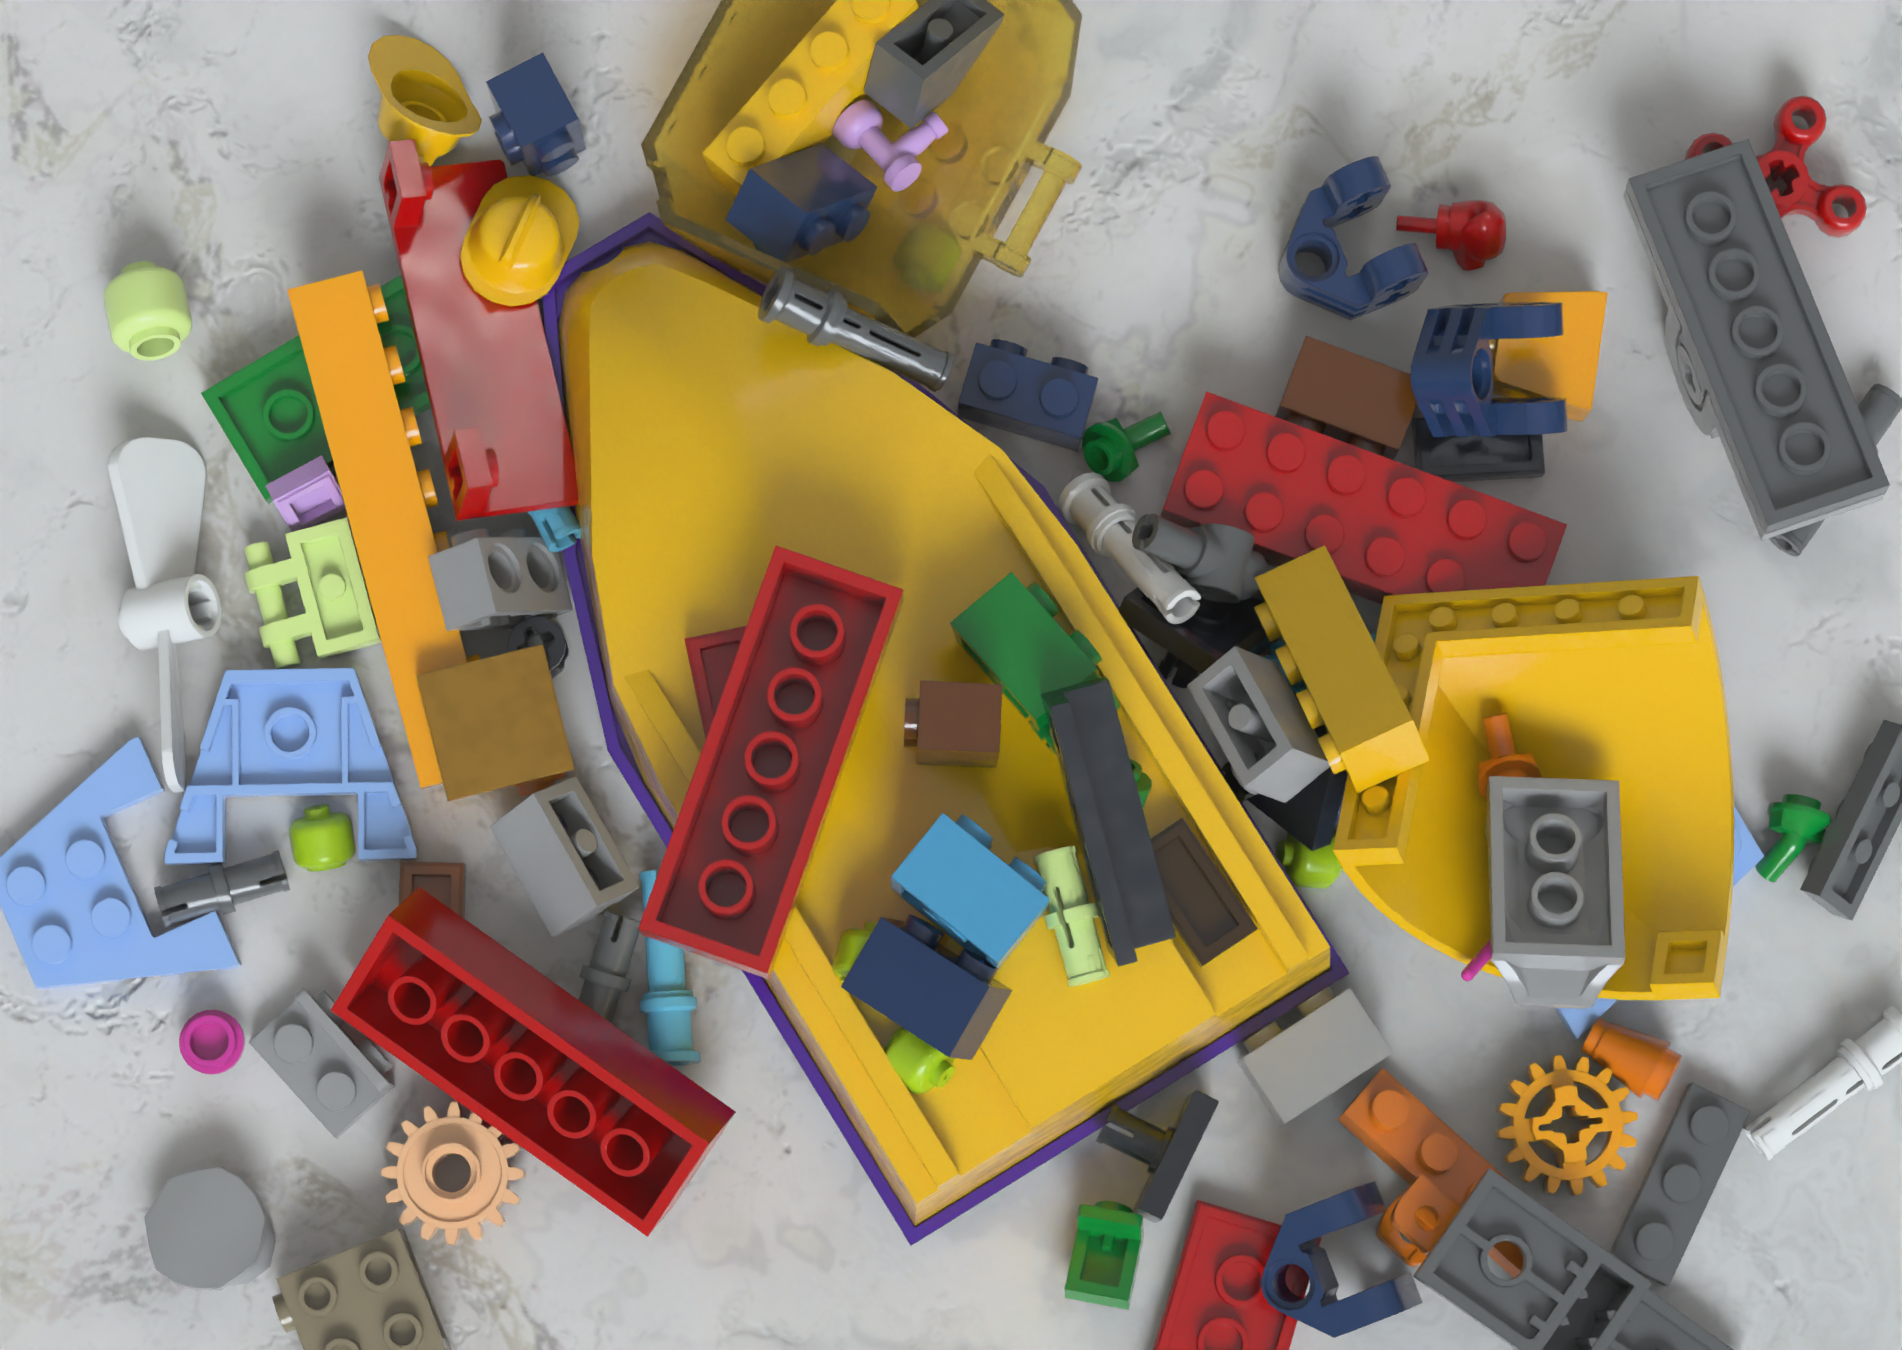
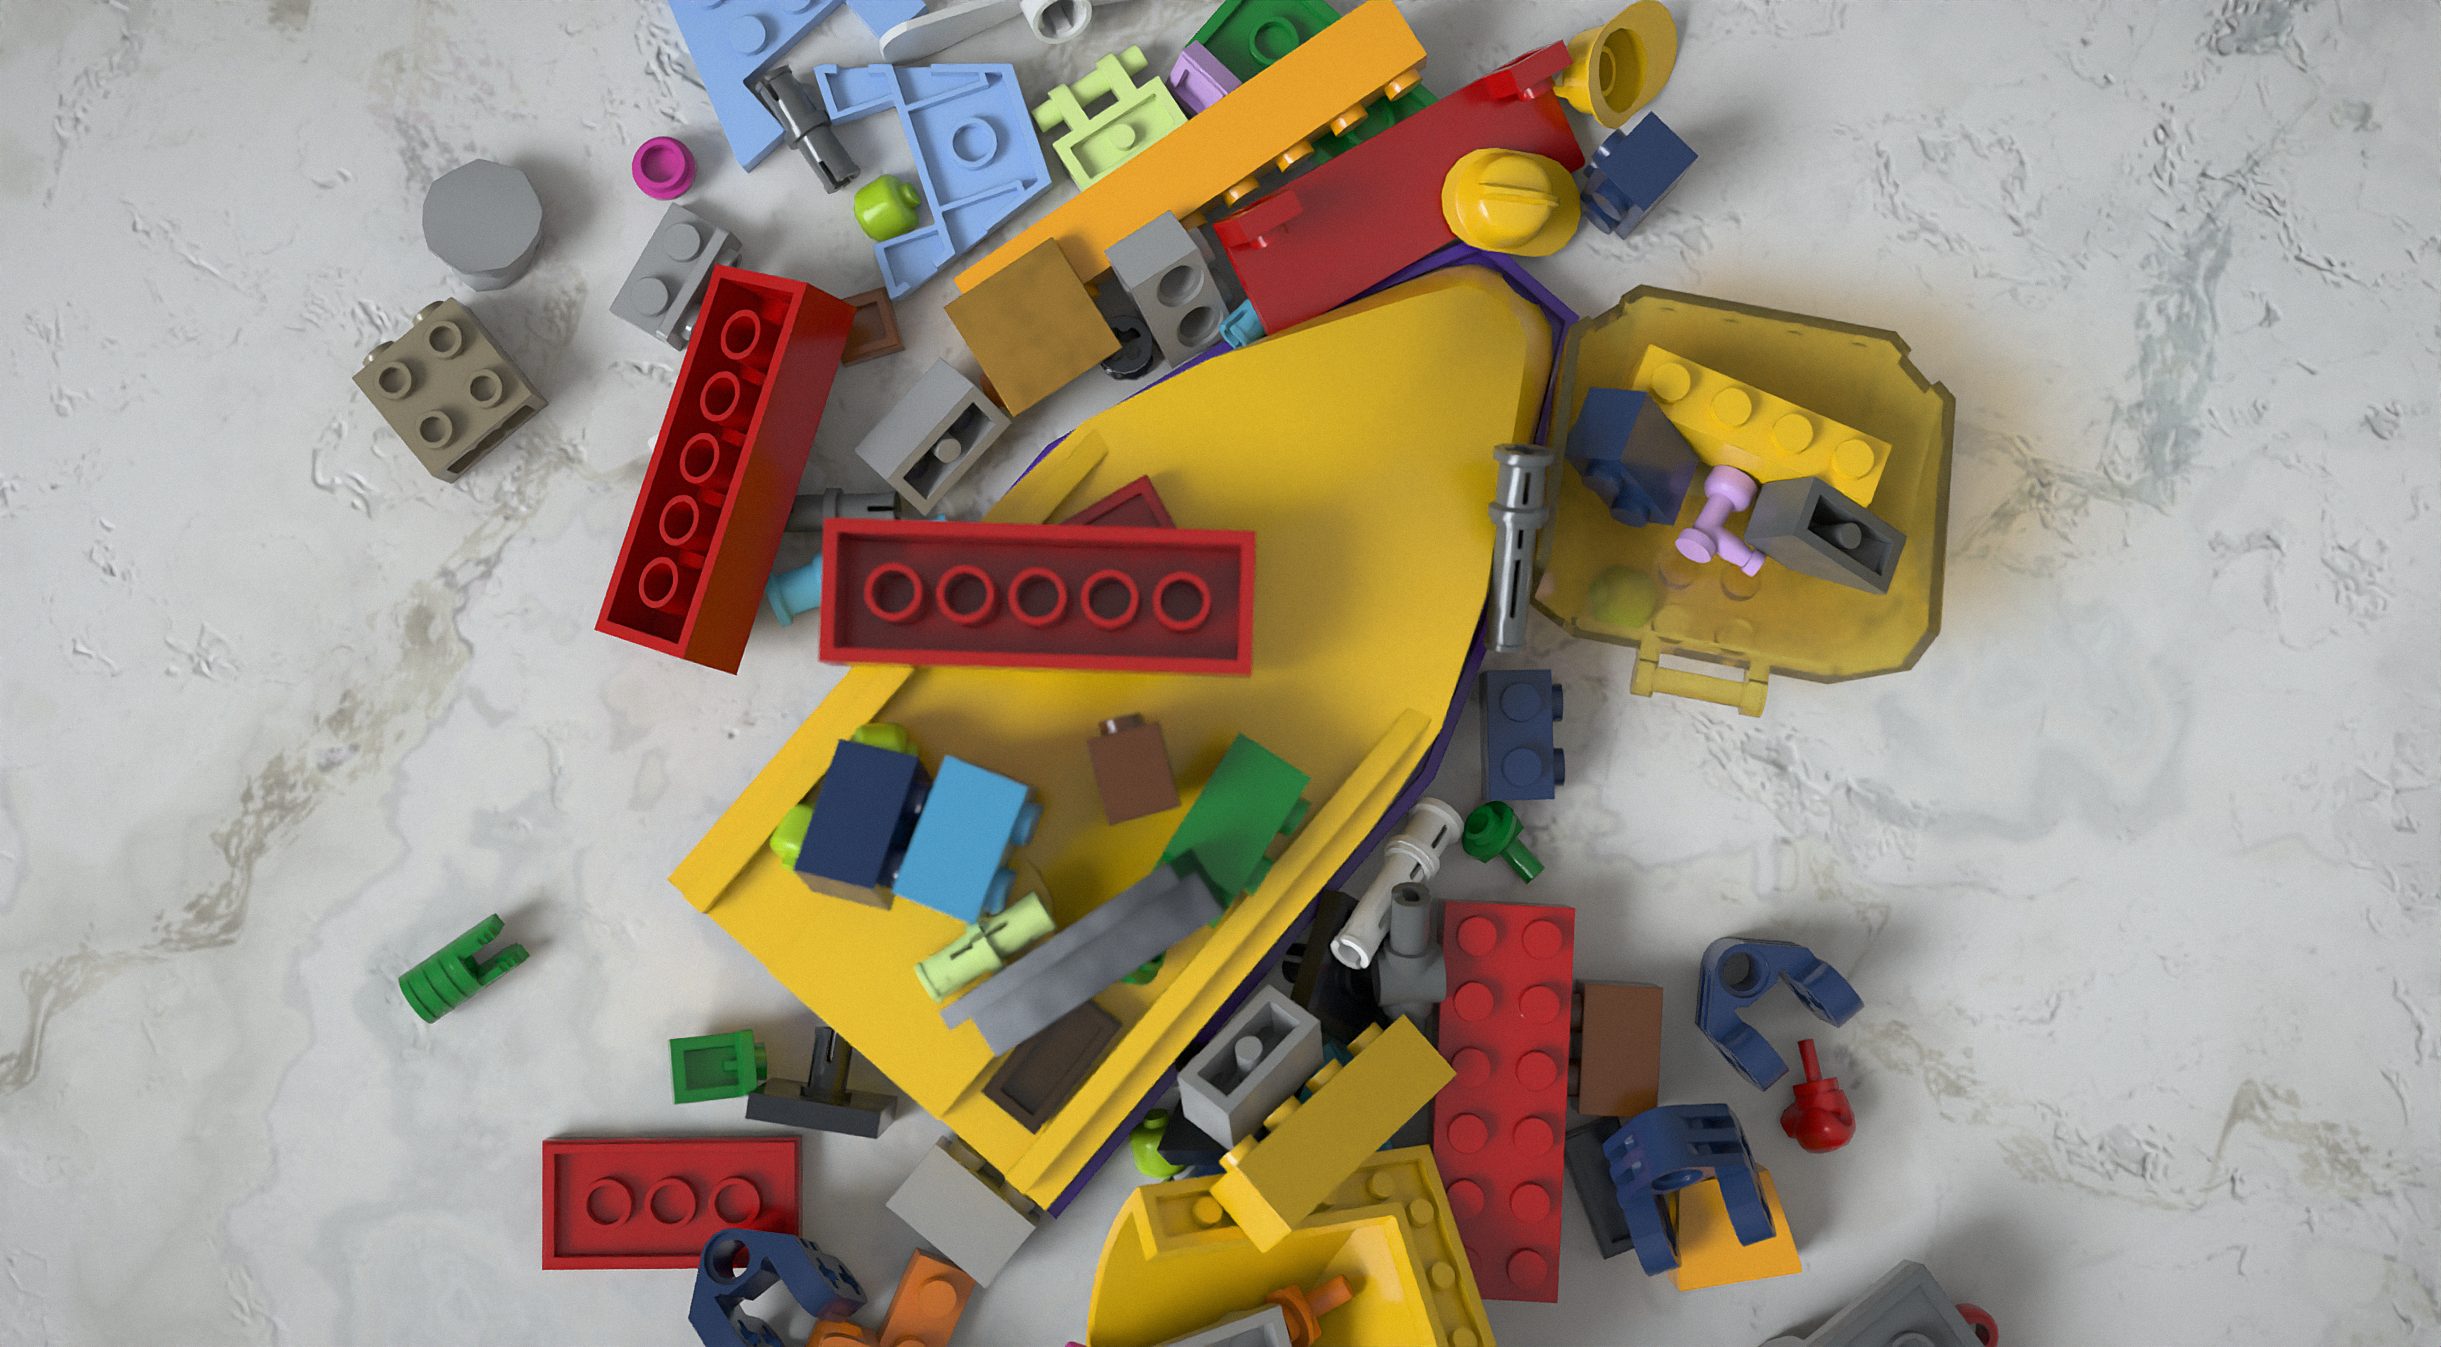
camera: 80 degrees right, 5 degrees up
(419, 1182) = (575, 424): light nougat gear -> none

